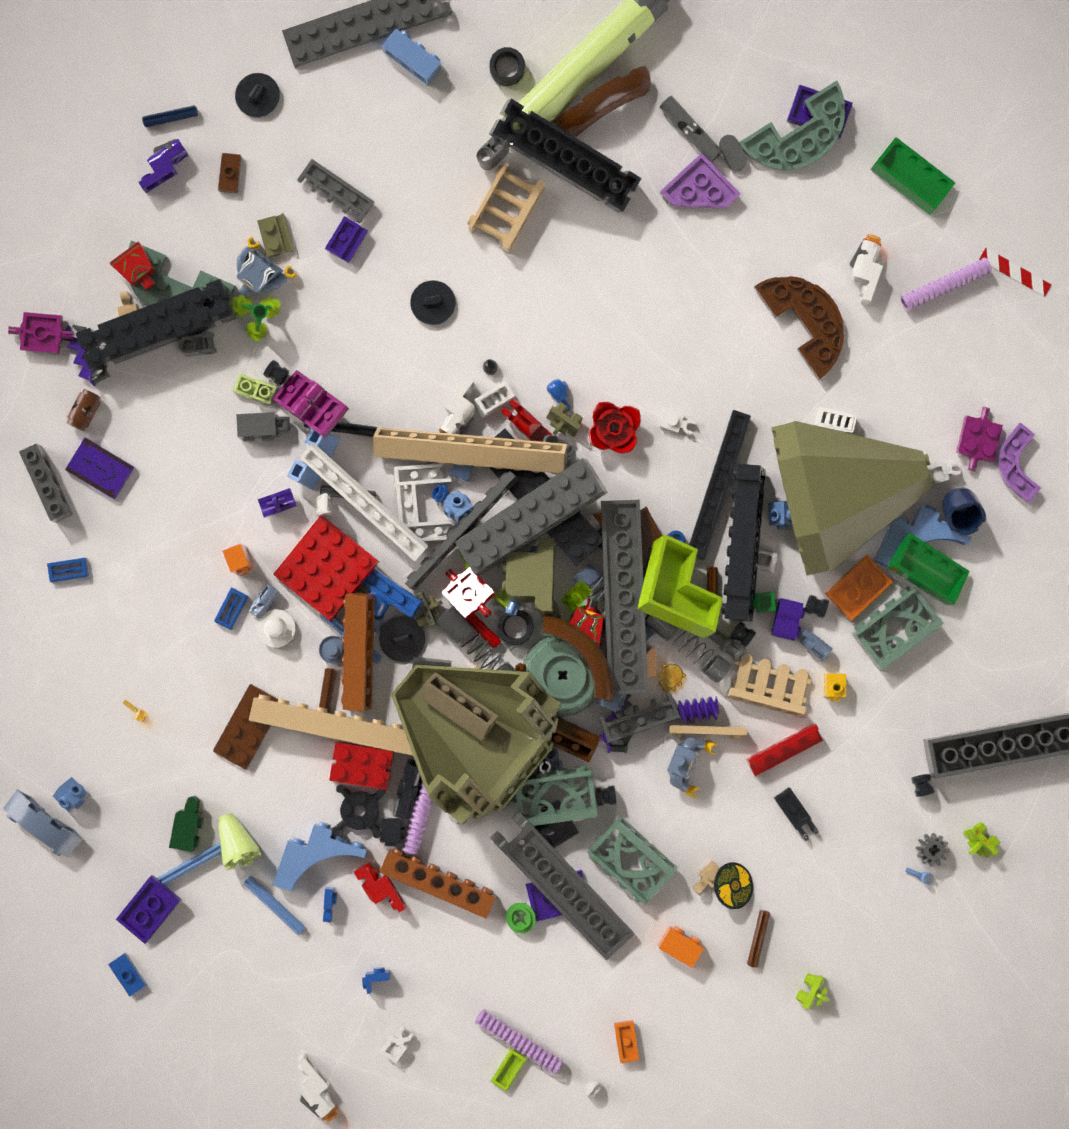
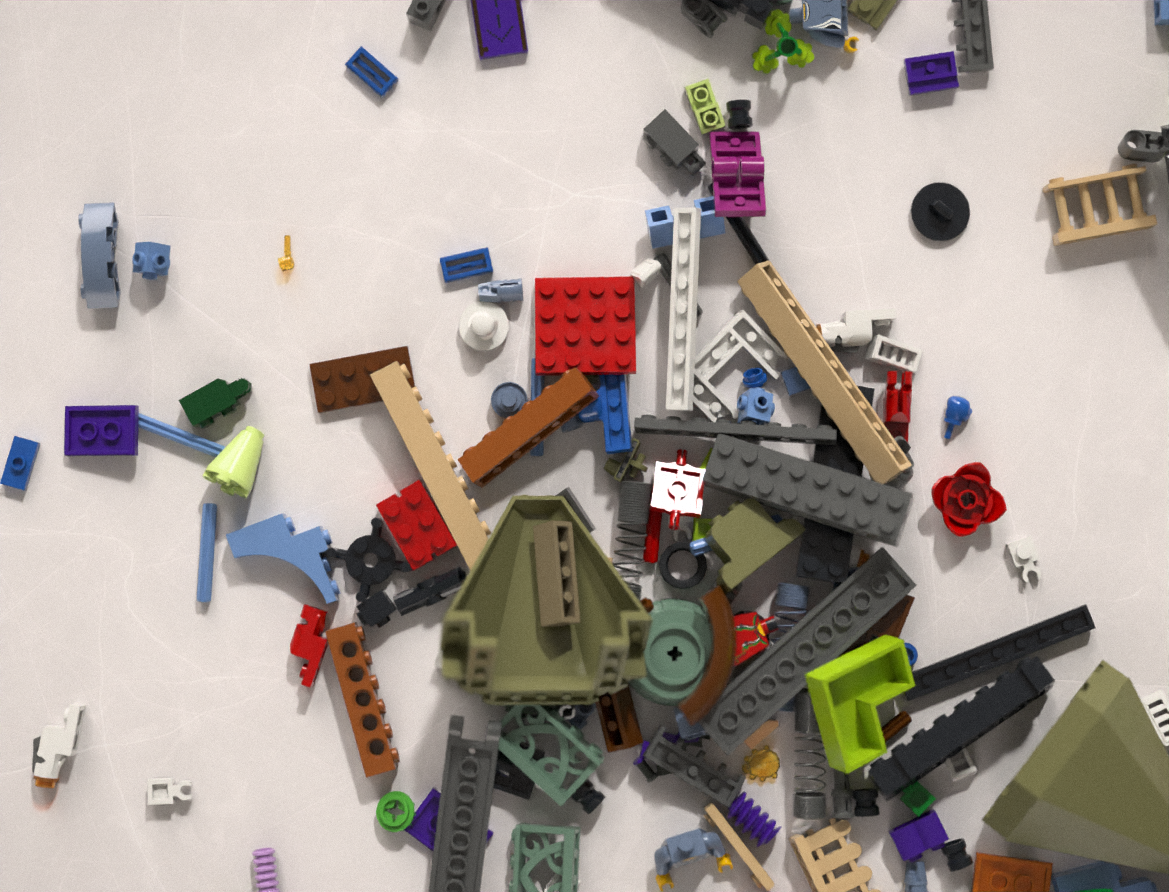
camera: 55 degrees right, 0 degrees up
(238, 559) = (521, 231): orange brick -> none
(277, 502) = (610, 223): dark purple hips -> none
(327, 688) = (465, 427): reddish brown axle -> none
(329, 899) = (258, 604): blue plate -> none
(378, 974) = (220, 713): blue bracket -> none
(402, 638) = (576, 460): black shield -> none
(418, 822) = (408, 627): lavender piece -> none
(494, 365) = (919, 318): black hinge -> none
(562, 422) = (929, 442): olive hips -> none
(576, 595) = (766, 601): clear neon green leg -> none
(779, 515) = (1019, 741): medium blue brick -> none

